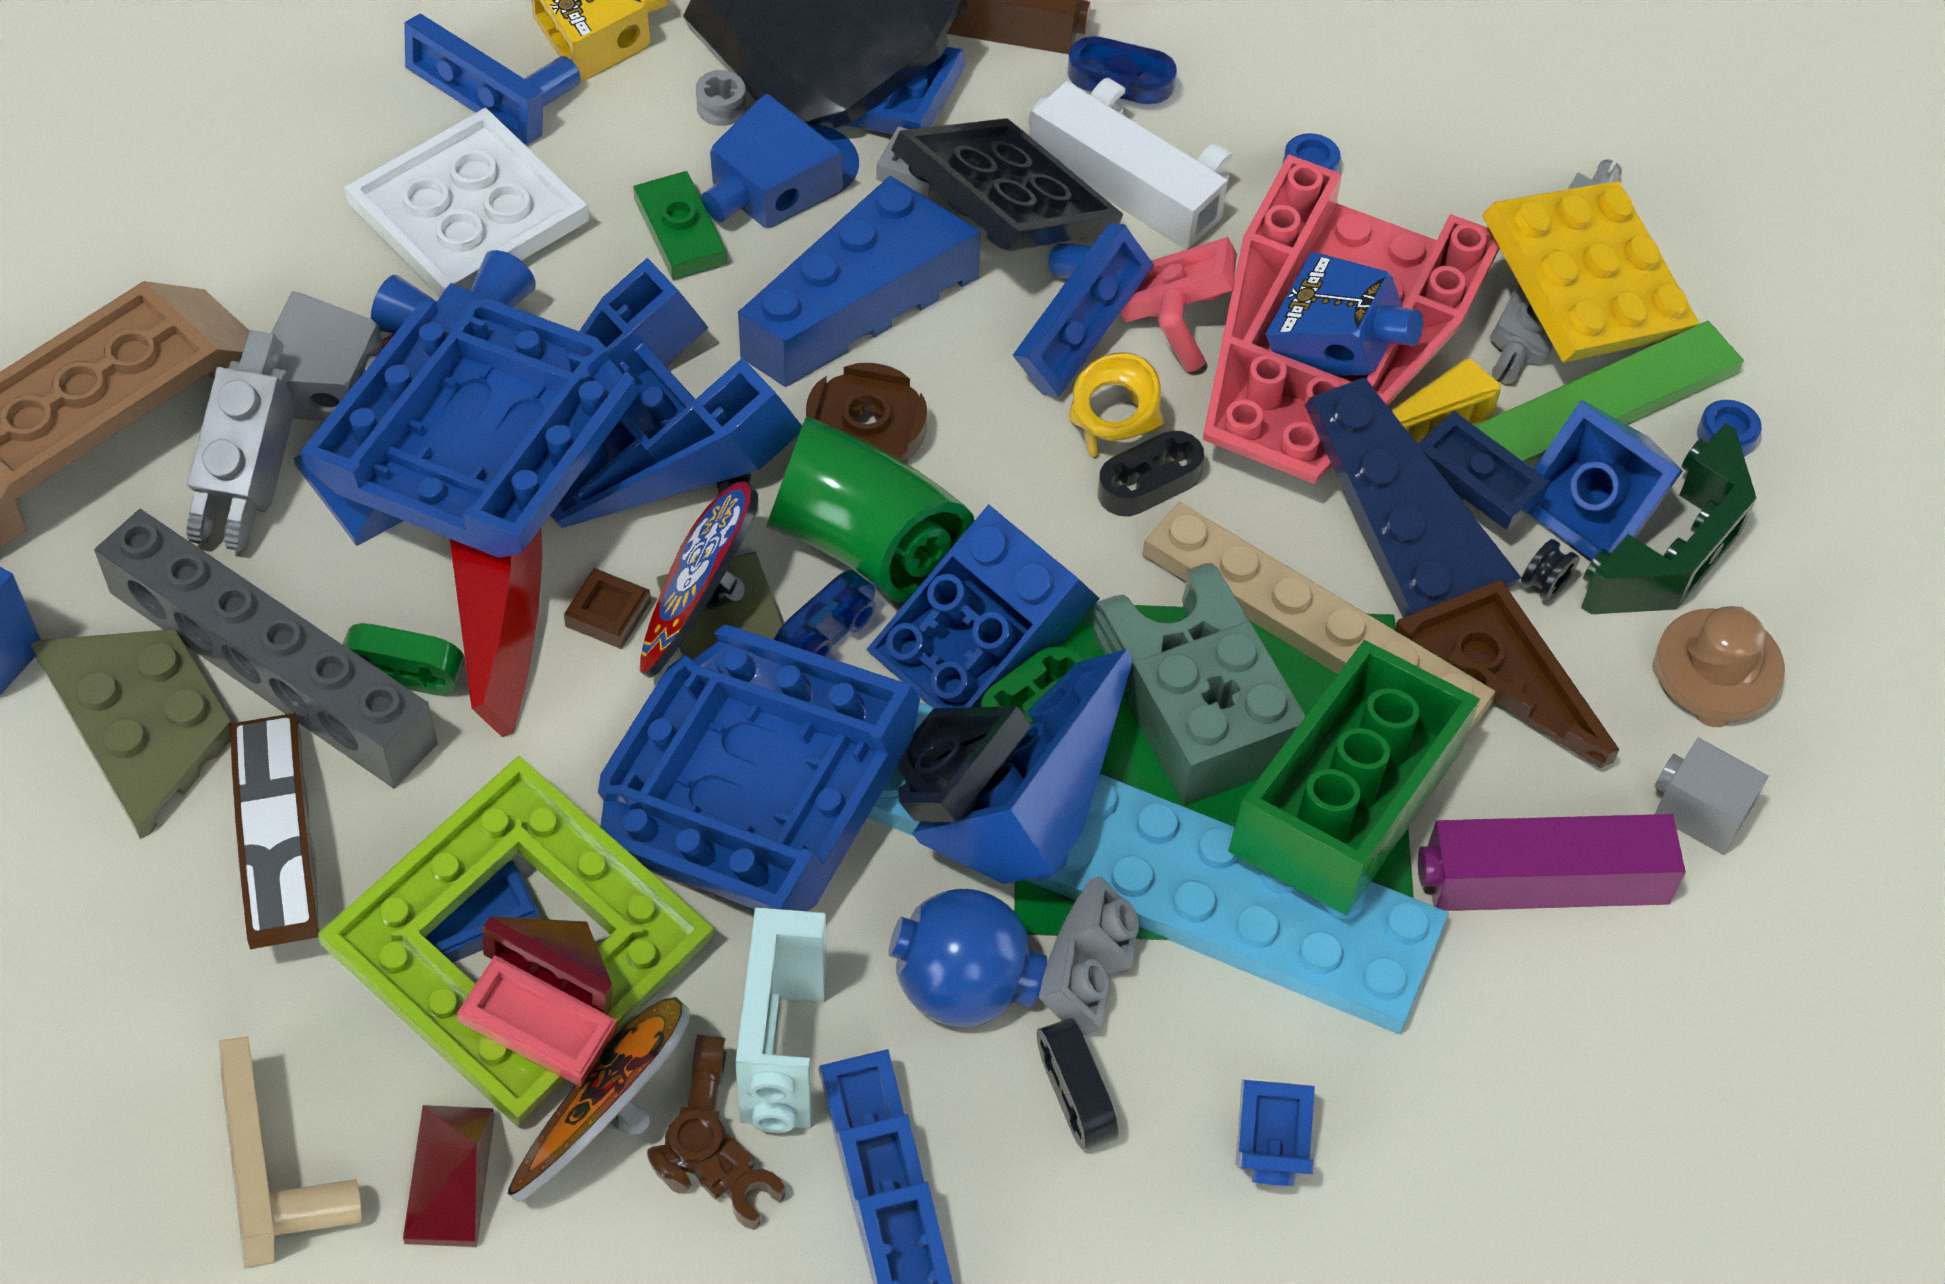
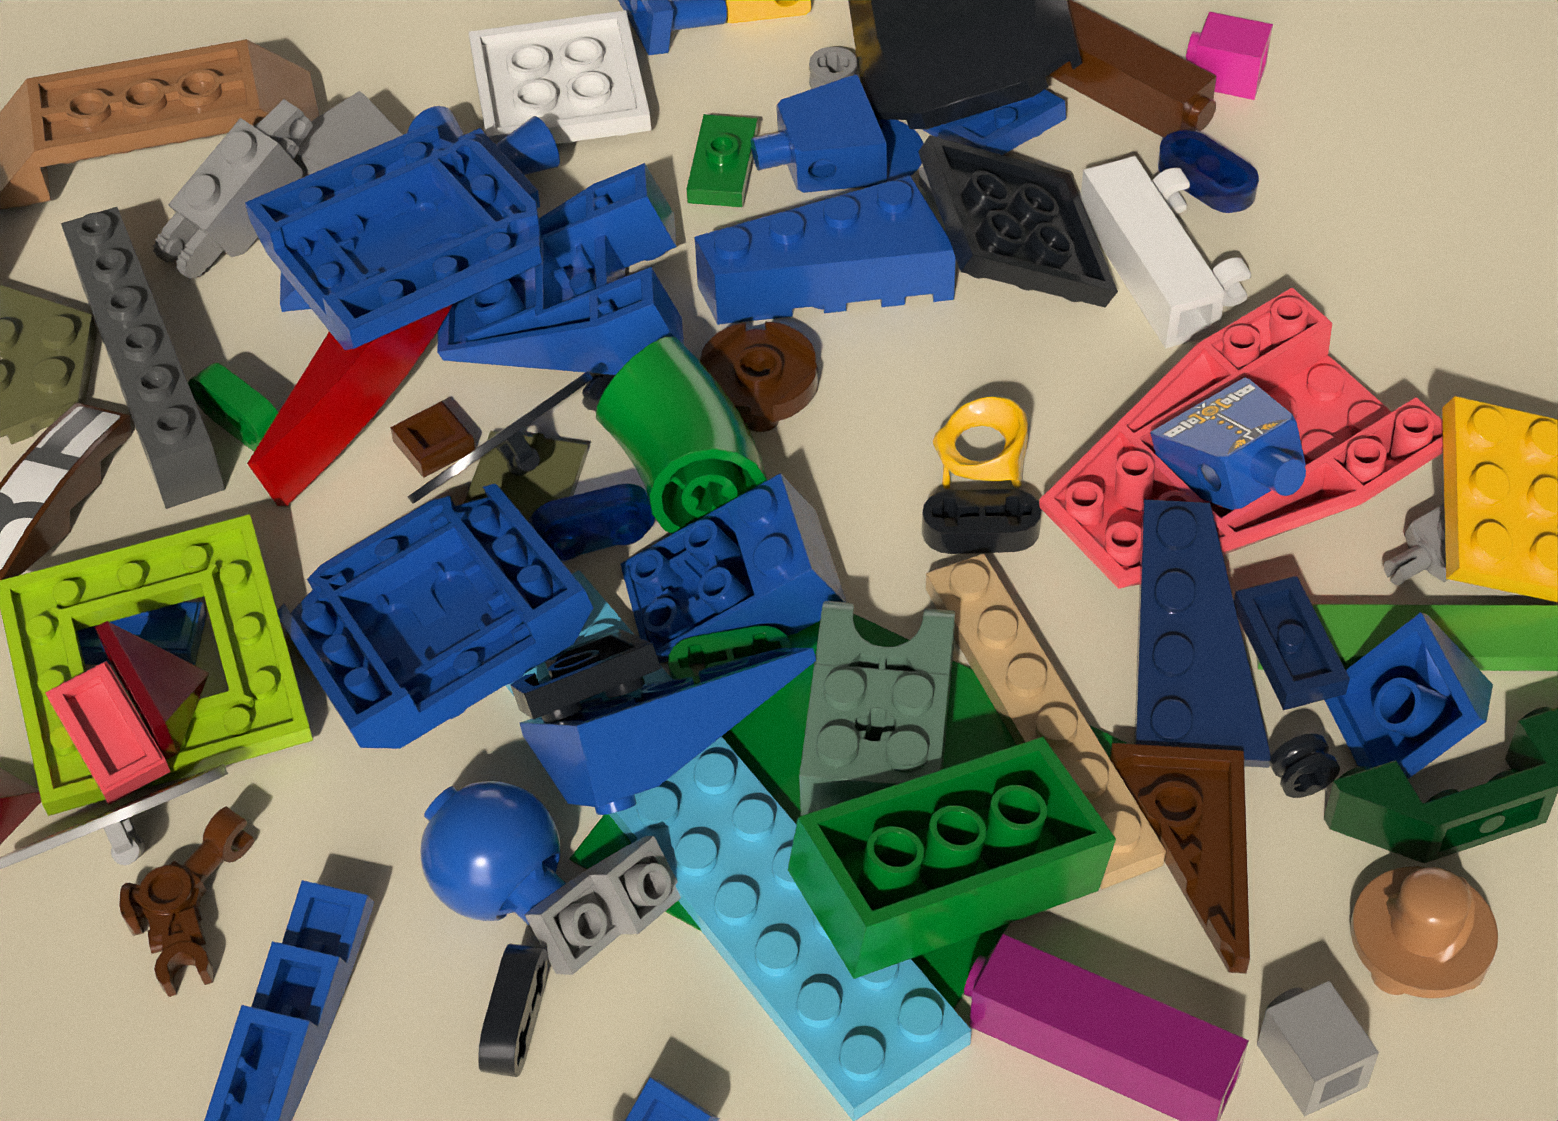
camera: 35 degrees right, 5 degrees down
(788, 964) = (339, 789): light aqua panel -> none
(1082, 311) = (1011, 351): blue piece -> none
(1179, 280) = (1111, 362): coral plate -> none
(1314, 149) = (1346, 309): blue tile -> none
(1461, 389) = (1325, 568): yellow slope -> none

